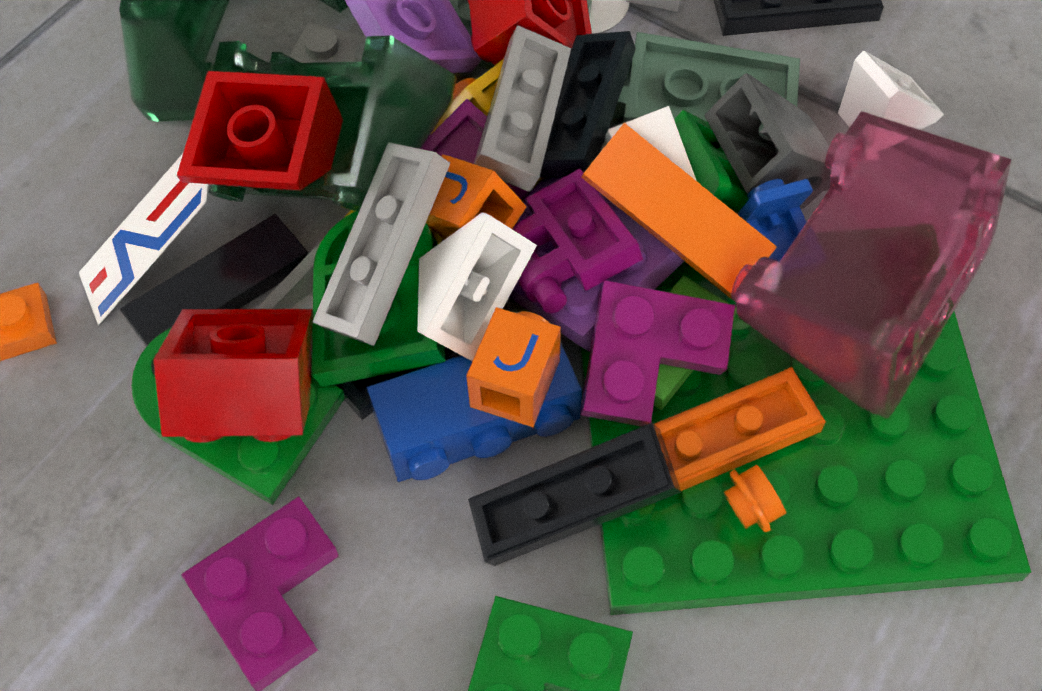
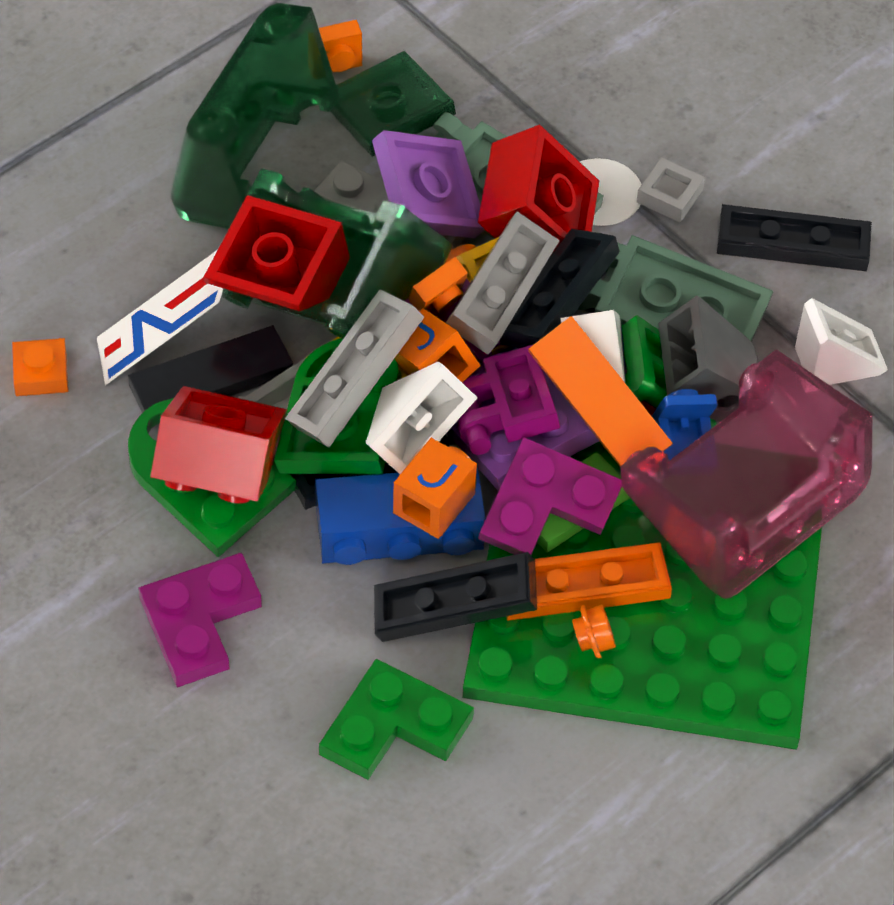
camera: 10 degrees right, 5 degrees down
(457, 125) = (440, 288): none -> orange plate

